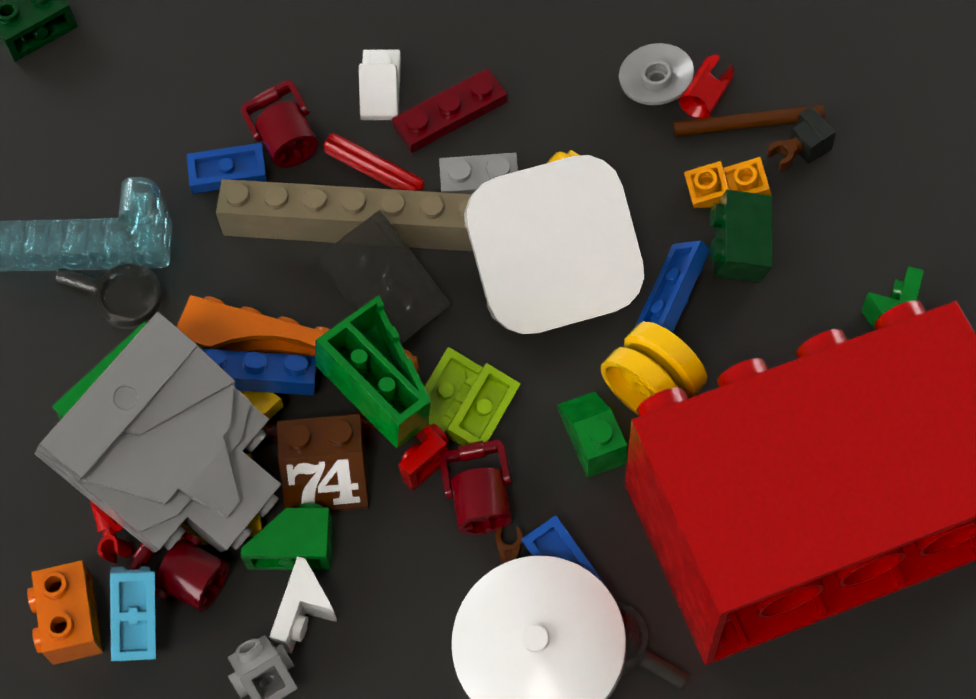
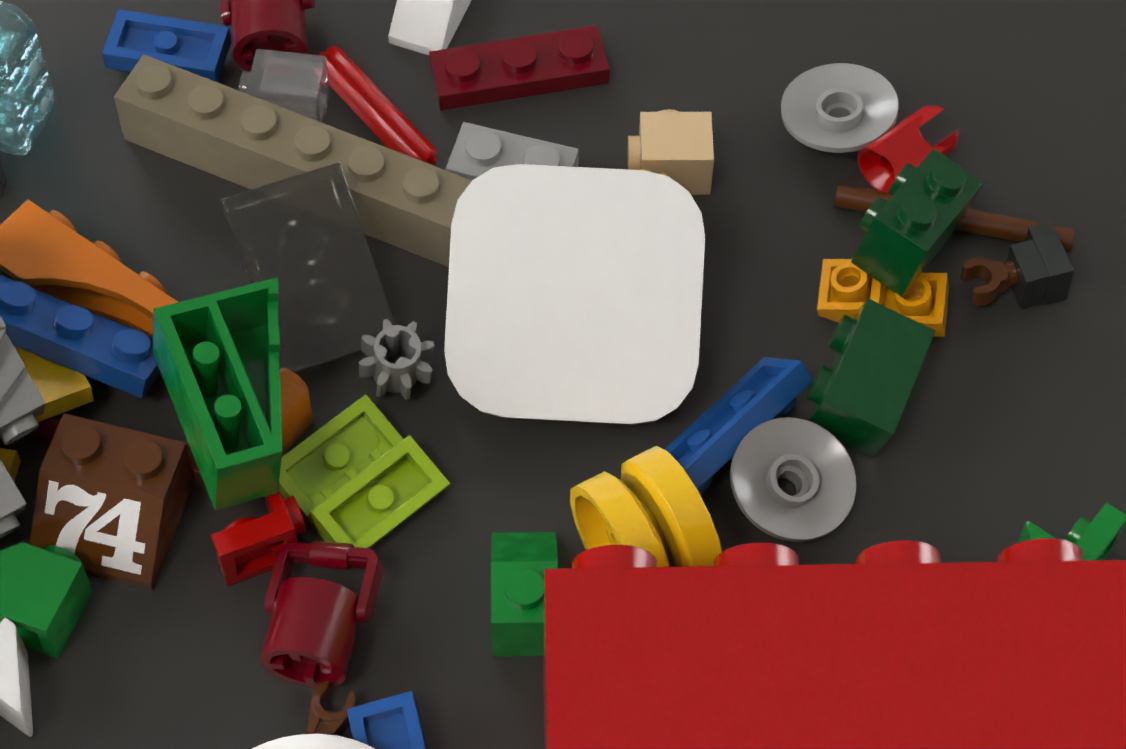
camera: 15 degrees right, 5 degrees down
(315, 166) = (289, 81): none -> clear brick
(460, 307) = (389, 344): none -> light grey gear
(568, 131) = (675, 145): none -> tan brick
(732, 302) = (811, 461): none -> light grey dish
(735, 131) = (916, 220): none -> dark green brick

